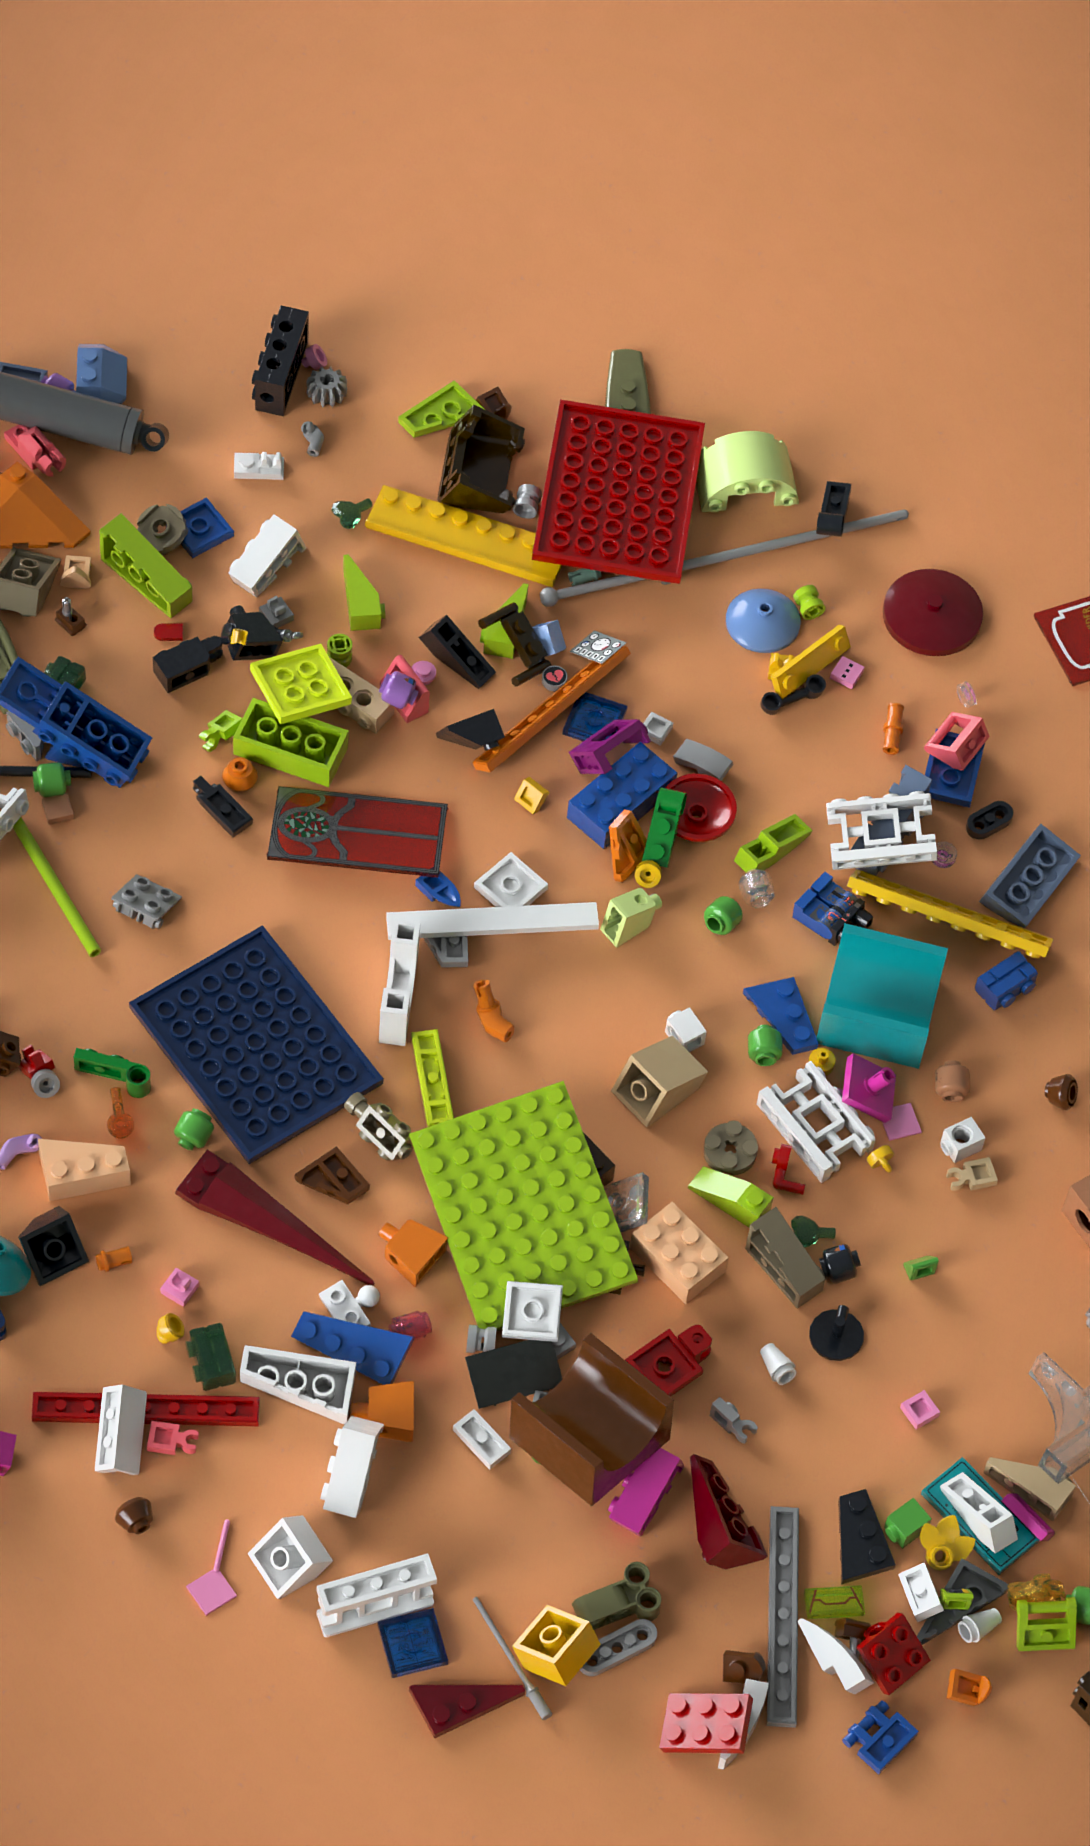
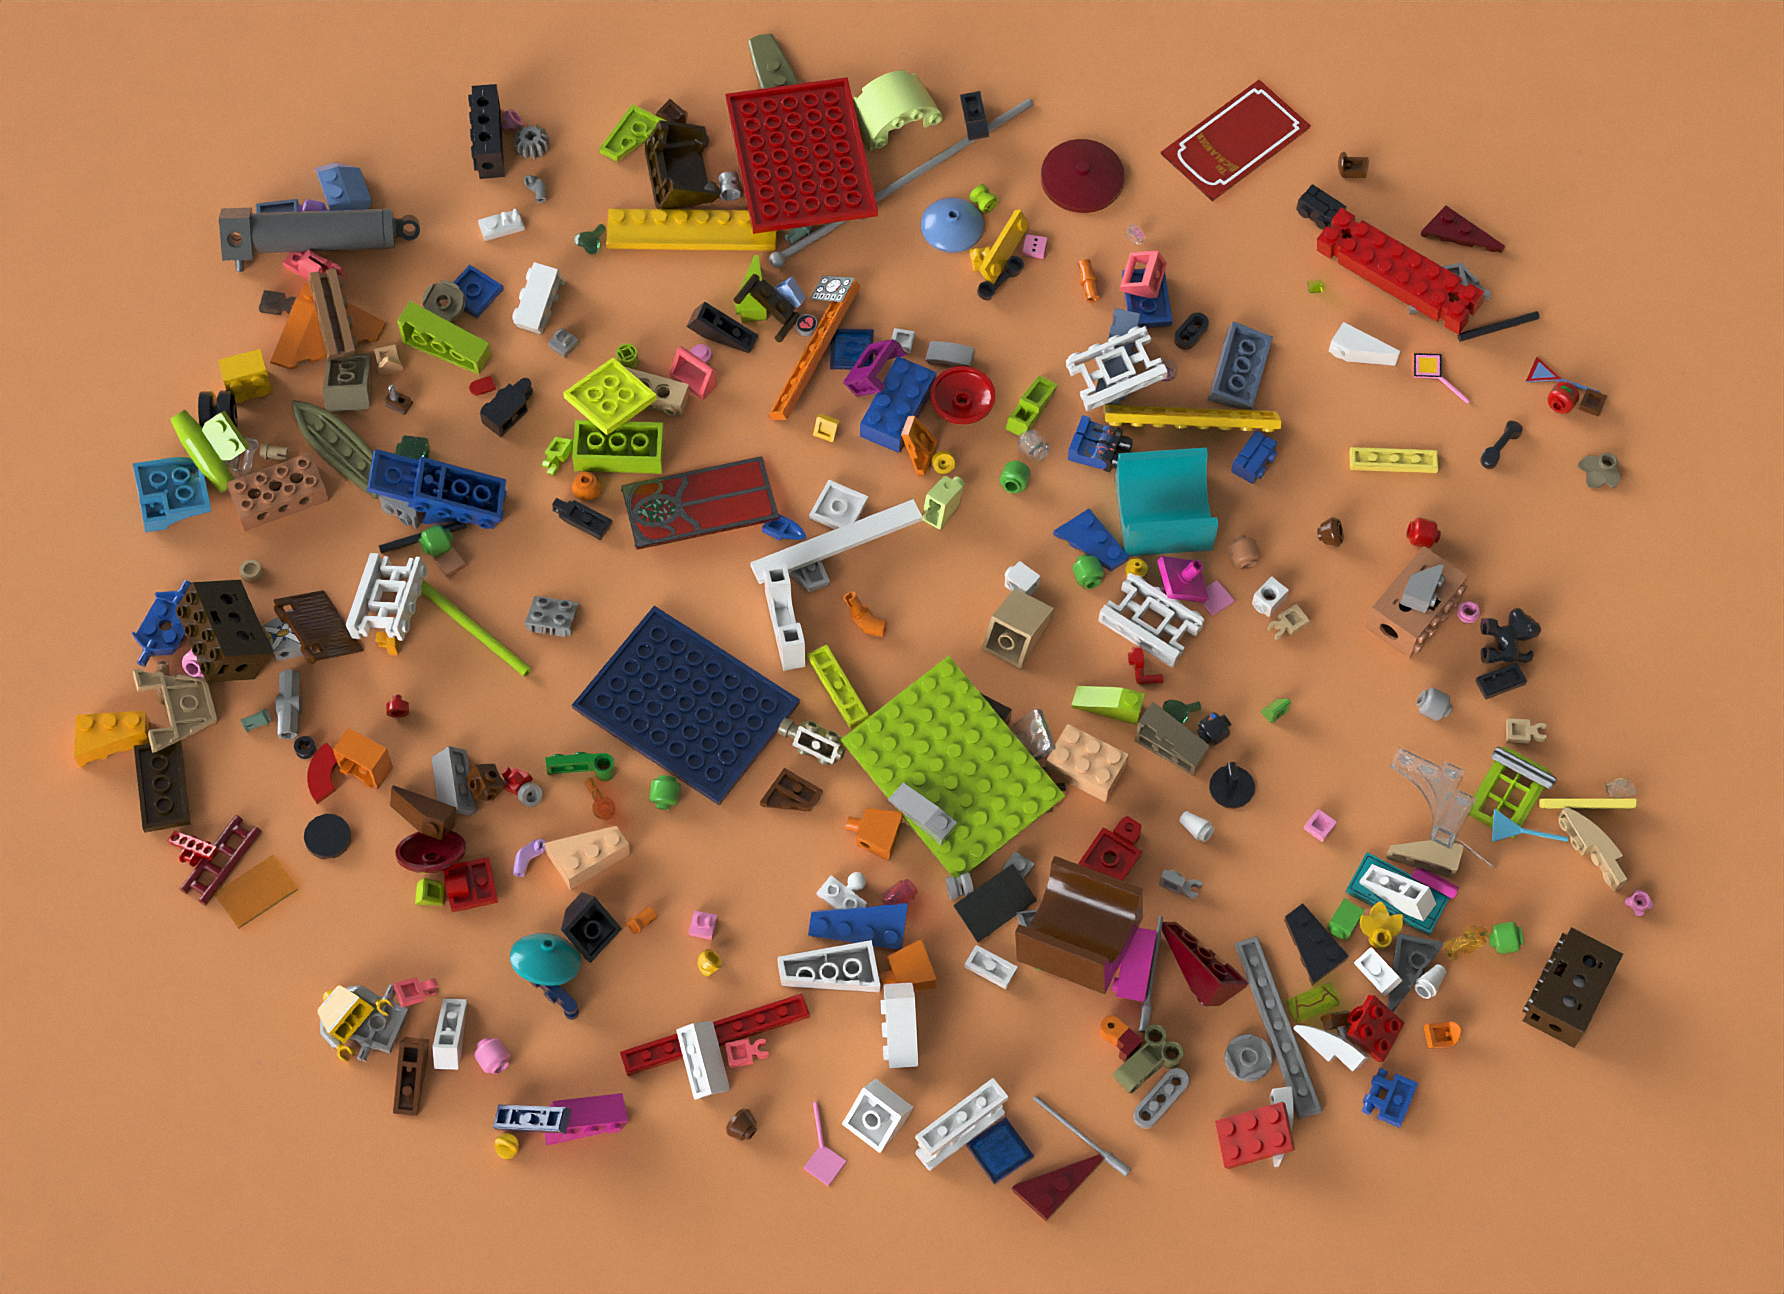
camera: 15 degrees left, 5 degrees up
(32, 503) = (332, 315): none -> medium nougat brick
(212, 1357) = (752, 974): clear green brick -> none
(232, 1195) = (717, 836): dark red plate -> none
(253, 636) = (553, 368): black torso -> none
(362, 598) = (628, 308): lime slope -> none
(398, 690) = (690, 376): medium lavender head -> none
(469, 1245) = (923, 813): none -> light grey slope
(475, 732) = (763, 389): black slope -> none
(532, 1311) = (993, 850): white plate -> none
(556, 1645) = (1116, 1114): yellow brick -> none
(598, 1562) = (1118, 1033): none -> leg
(641, 1543) = (1146, 1008): none -> light grey piece
(664, 826) = (943, 419): green plate -> none
(730, 1162) = (1093, 652): dark tan plate -> none
(734, 1632) = (1248, 1058): none -> light grey tile
(742, 1666) = (1264, 1079): reddish brown plate -> none
(881, 1157) = (1212, 632): yellow tile -> none
(956, 1598) = (1407, 967): lime slope -> none
(1046, 1633) = (1483, 970): lime plate -> none

